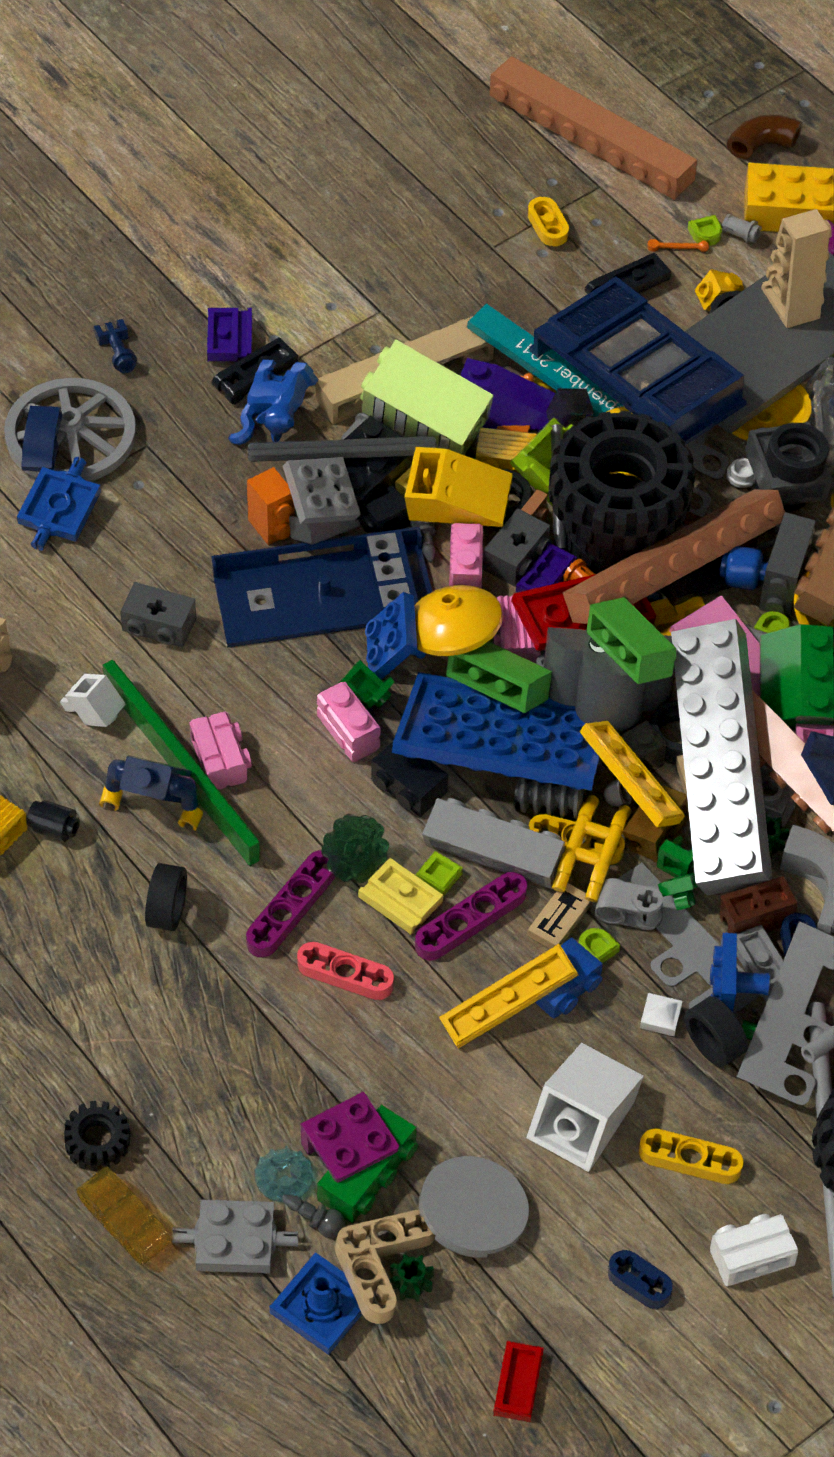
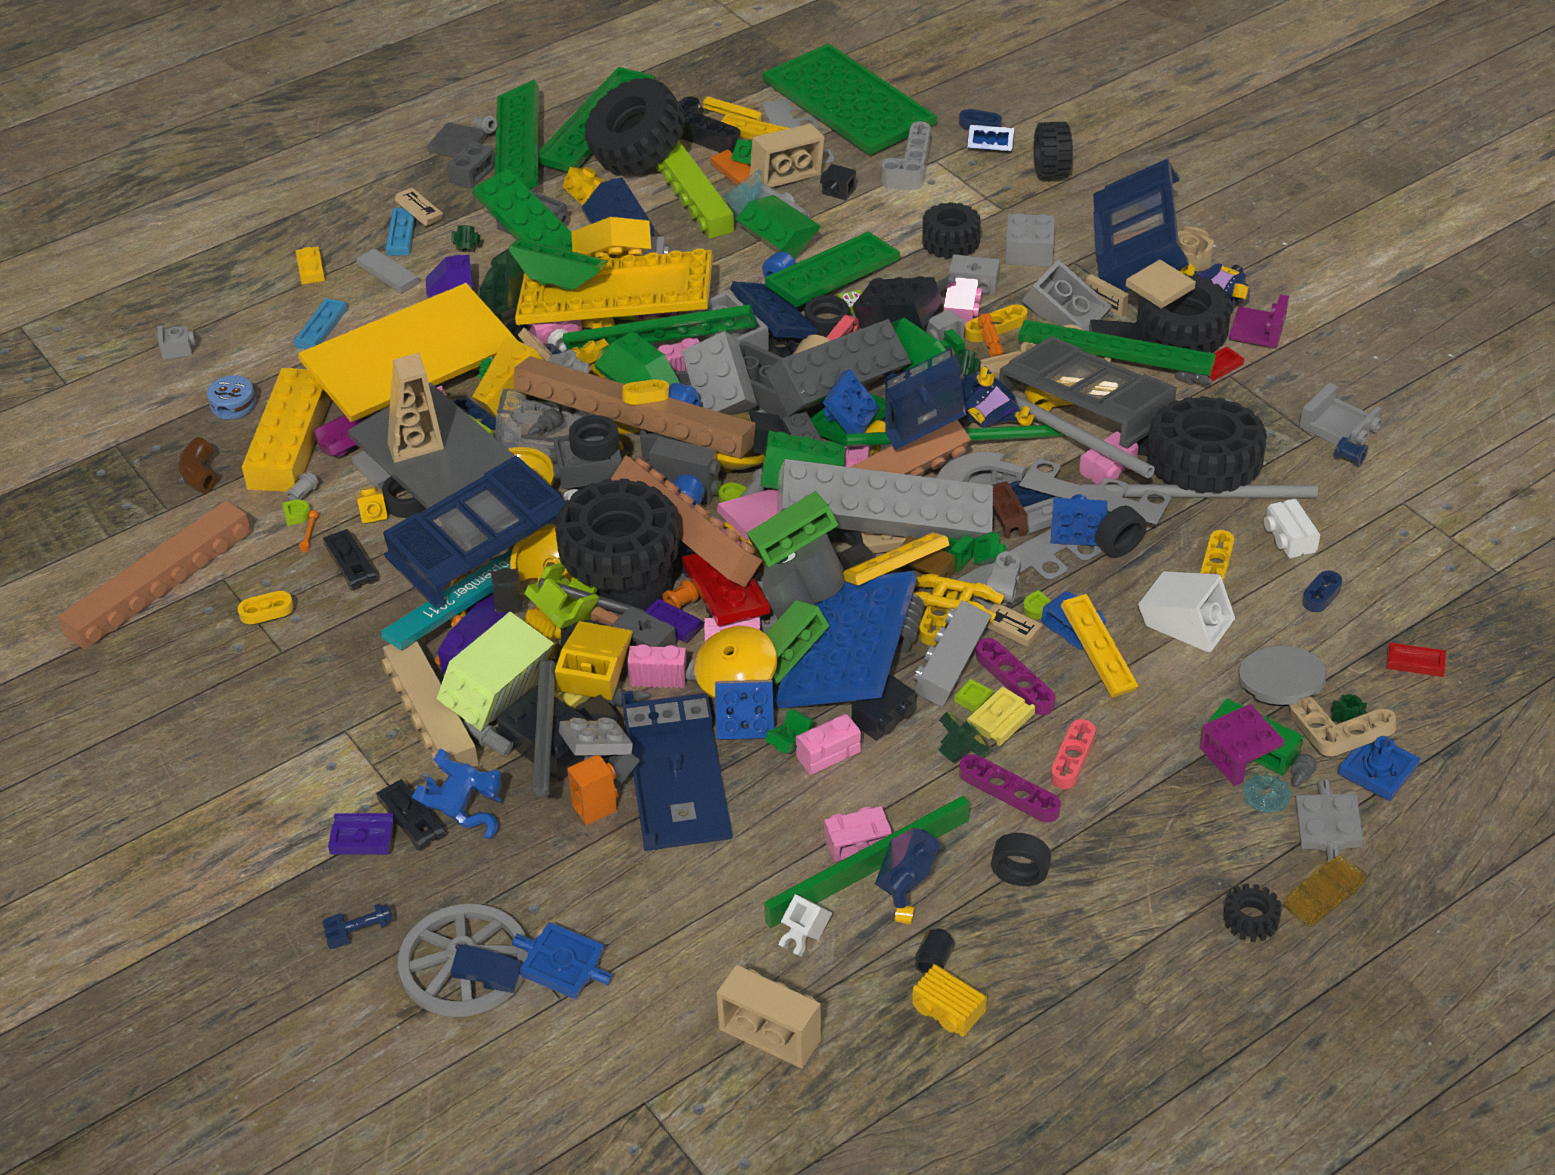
camera: 85 degrees left, 10 degrees down
(158, 614) = (703, 880): dark grey brick -> none
(661, 1014) = (1096, 571): white tile -> none

